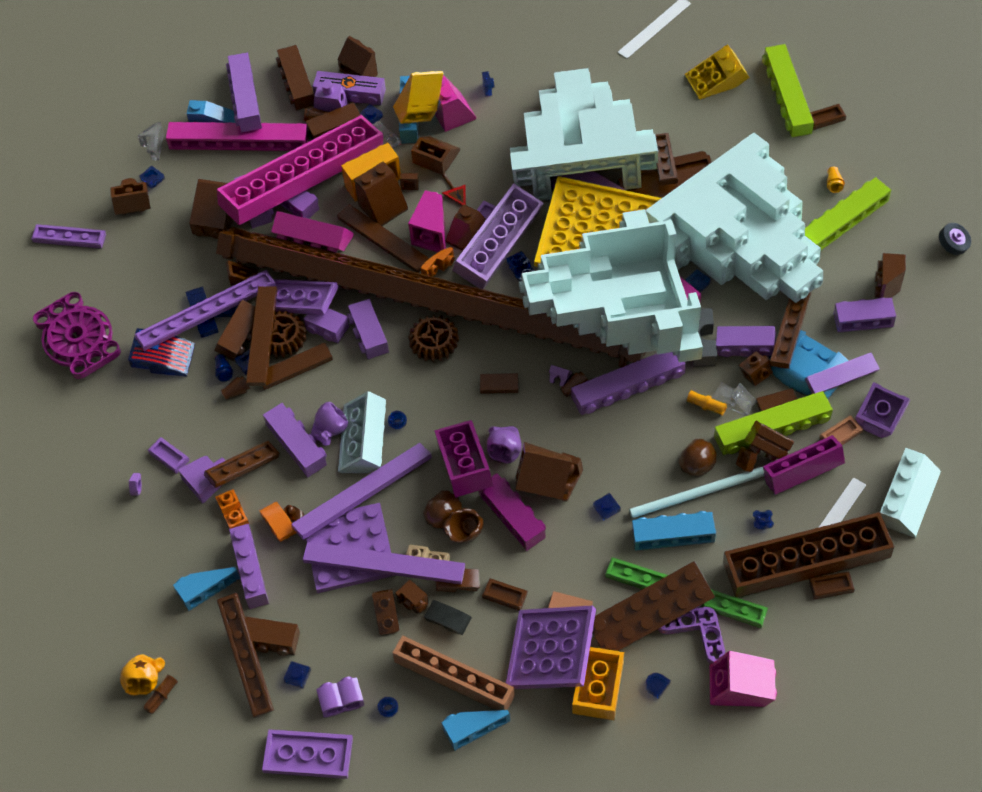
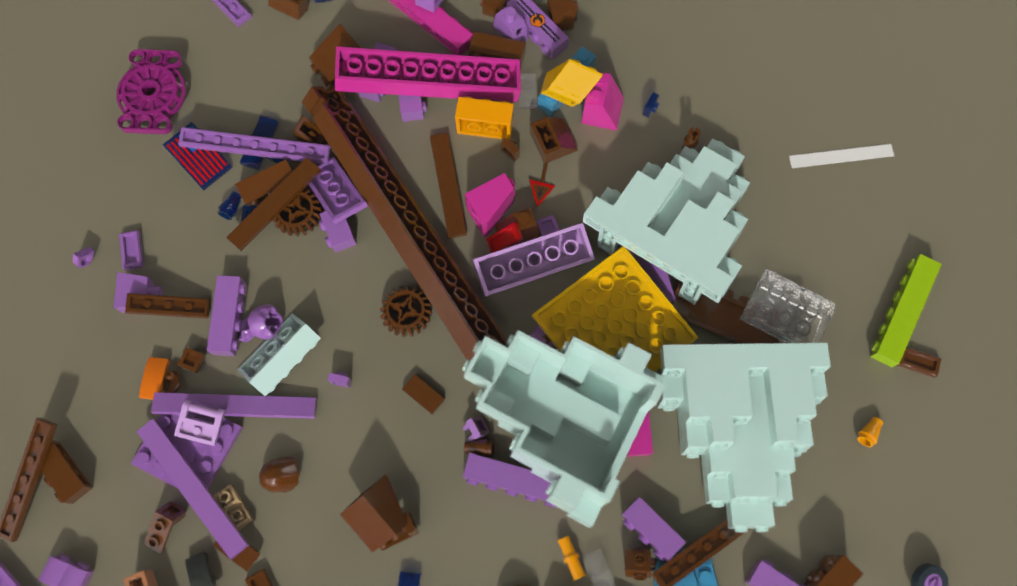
camera: 35 degrees right, 15 degrees up
(201, 586) = (49, 386): dark azure slope -> none
(231, 509) = (134, 338): orange slope -> none
(235, 388) = (221, 231): reddish brown cone -> none
(249, 566) = (98, 401): medium lavender brick -> none
(296, 489) = (191, 360): none -> reddish brown plate
(297, 365) = (286, 248): reddish brown tile -> none
(297, 674) = (57, 524): clear blue plate -> none
(311, 231) = (394, 137): dark pink slope -> none
(312, 112) = (488, 27): reddish brown cone -> none
(351, 520) = (198, 429): none -> lavender plate
(367, 329) = (363, 260): medium lavender brick -> none
(372, 114) = (534, 63): clear blue plate -> none
(380, 194) = (472, 146): reddish brown slope -> none
(397, 415) = (316, 356): clear blue plate -> none
(412, 597) = (191, 535): reddish brown brick -> none
(427, 417) = (339, 379): none -> medium lavender plate
(438, 261) = (475, 244): orange slope -> none
(463, 236) = (505, 238): none -> red tile
(463, 458) = (326, 448): magenta brick -> none
(463, 525) = (279, 507): reddish brown hair -> none
(504, 444) = (378, 455): medium lavender piece -> none
(513, 513) = (329, 525): magenta brick -> none
(519, 264) = (531, 303): clear blue slope -> none
(539, 82) = (691, 138): none -> reddish brown pin
(666, 166) = (736, 294): reddish brown tile -> none
(698, 280) = (664, 434): clear blue plate -> none
(705, 141) = (787, 310): none -> clear slope
(709, 352) = (631, 477): dark grey arch -> none
(717, 73) = (856, 245): yellow slope -> none
(848, 213) = (851, 475): lime brick -> none

